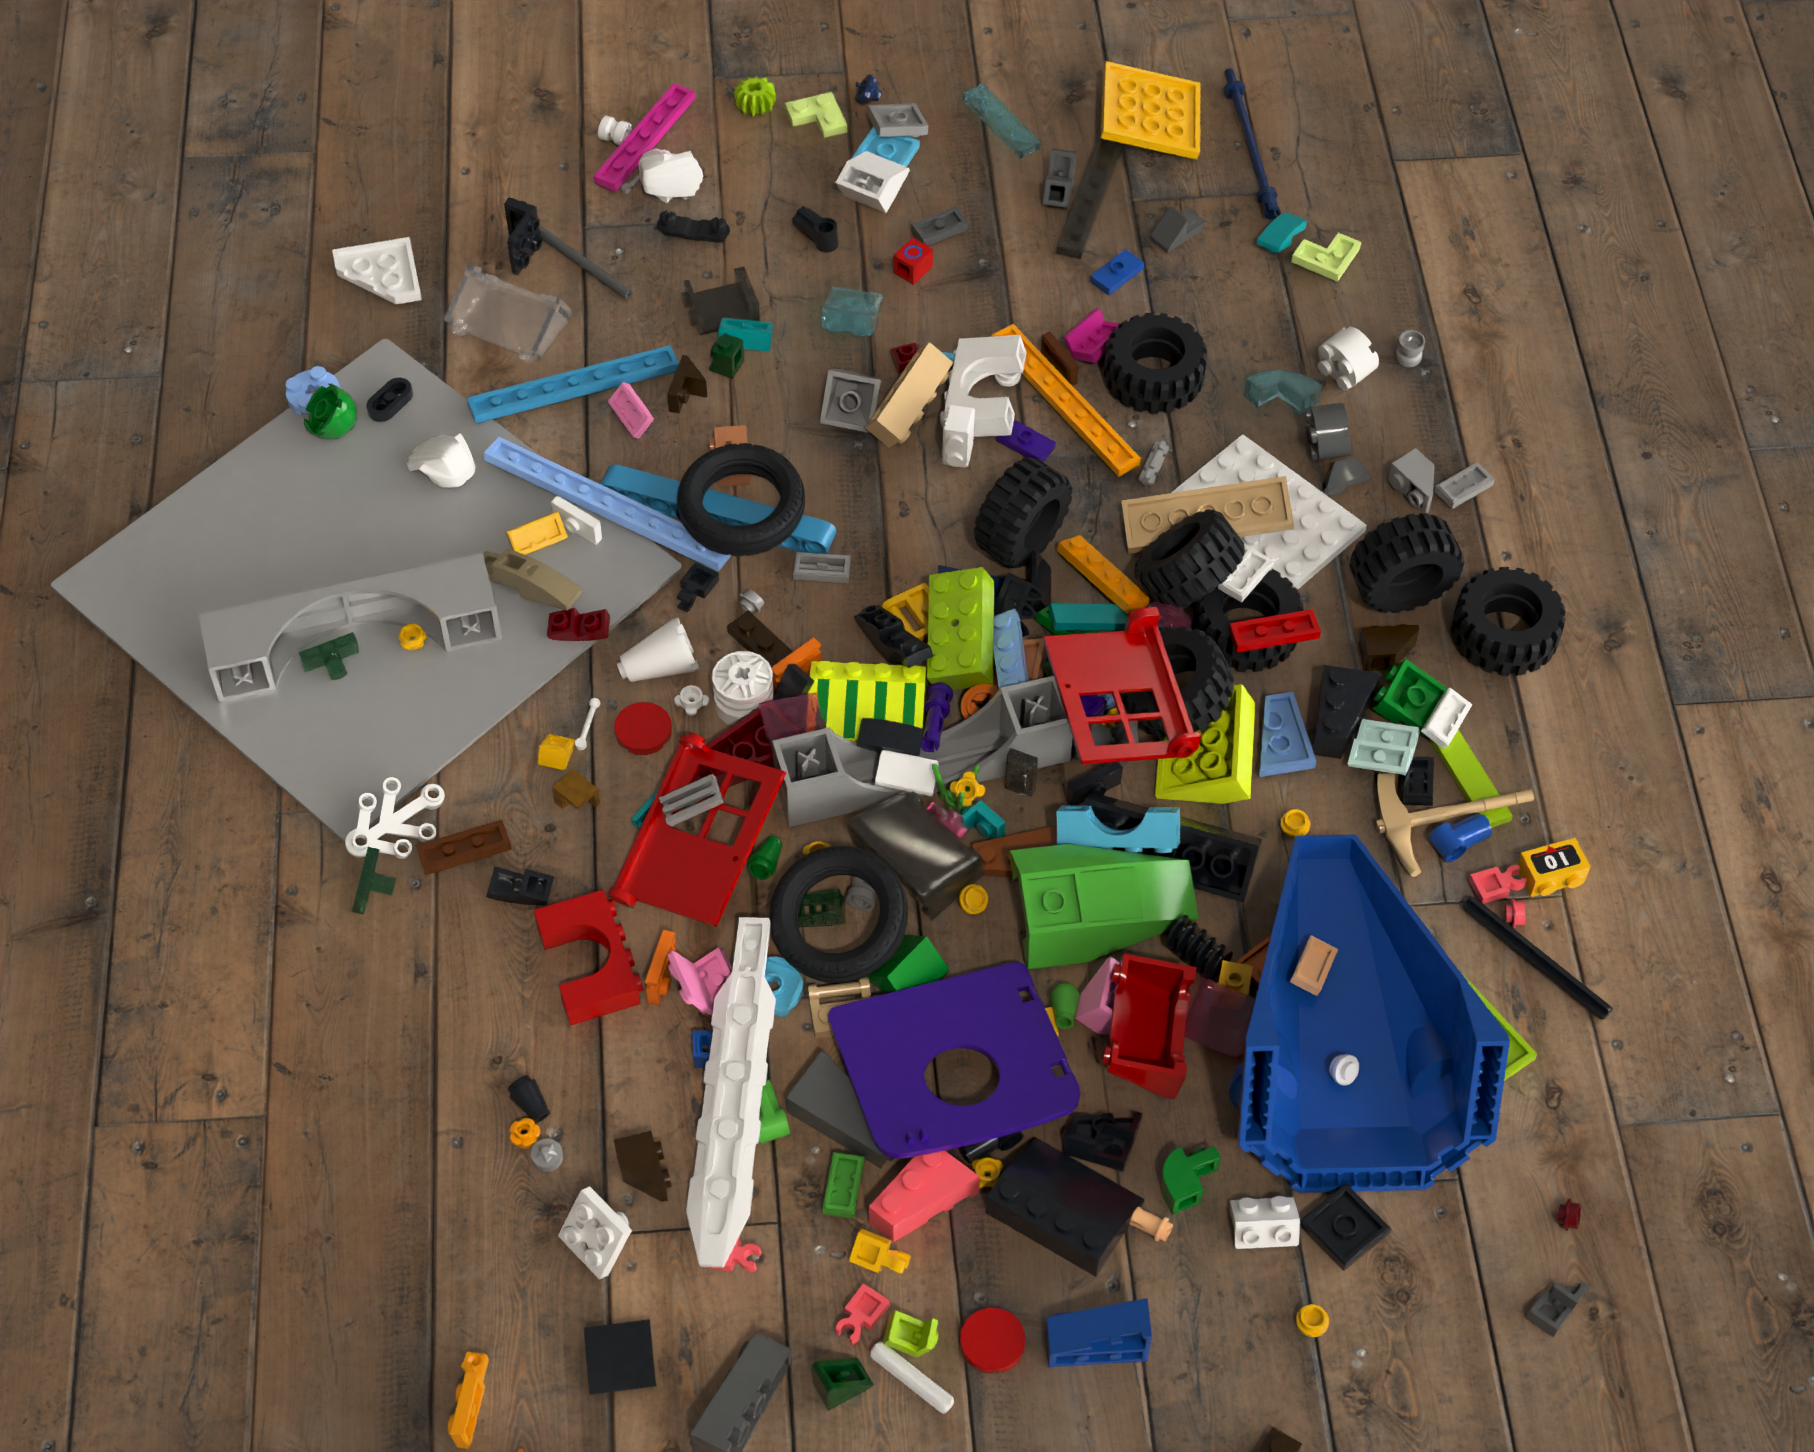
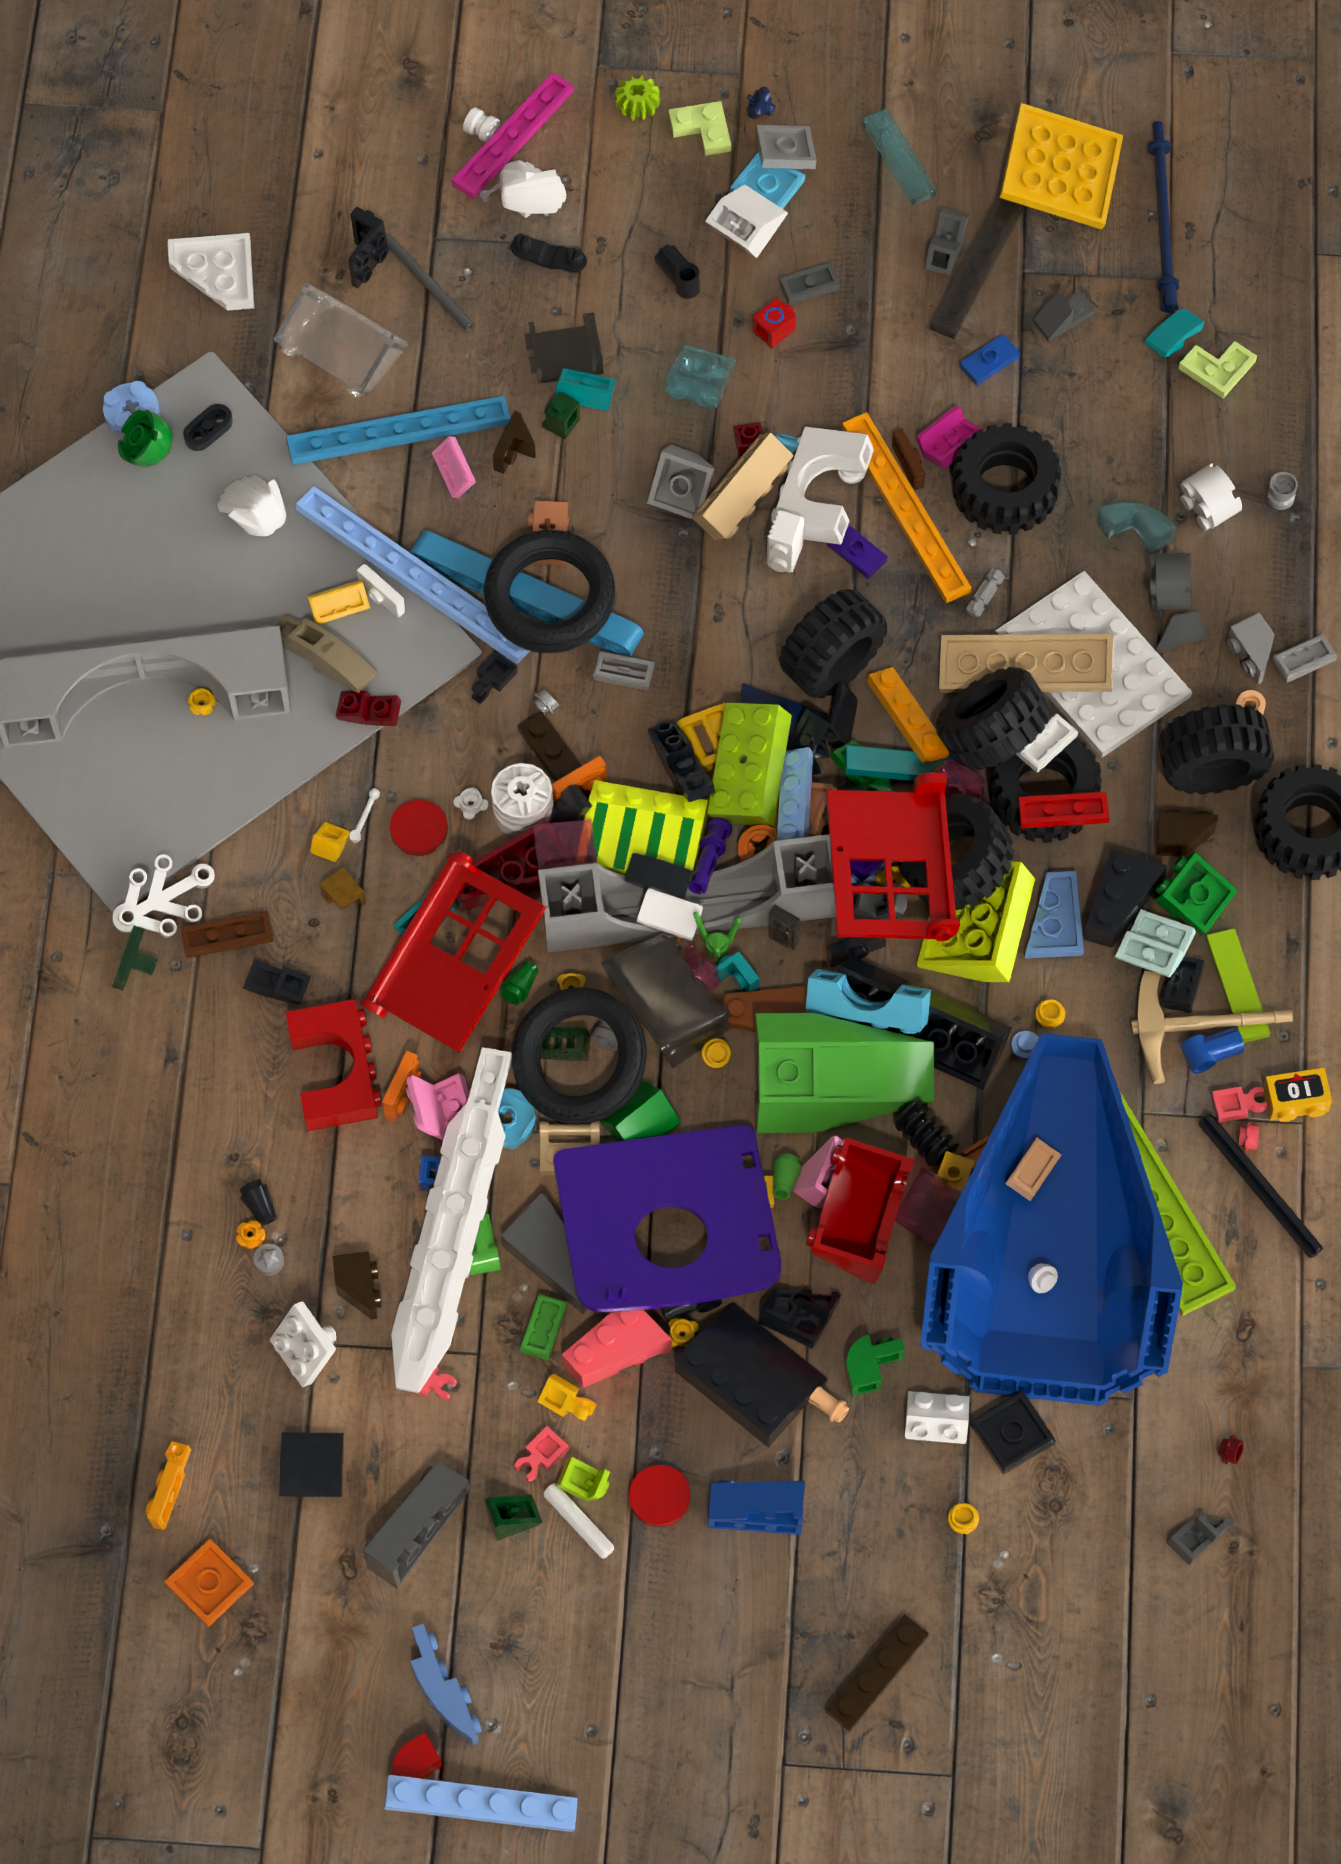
camera: 10 degrees right, 10 degrees up
(330, 655) = (118, 713): clear green tile -> none
(659, 654) = (445, 751): white cone -> none
(690, 795) = (431, 936): light grey tile -> none
(975, 788) = (728, 930): yellow plate -> none
(1277, 855) = (1023, 1044): none -> light blue plate
(1446, 718) = (1225, 920): white plate -> none

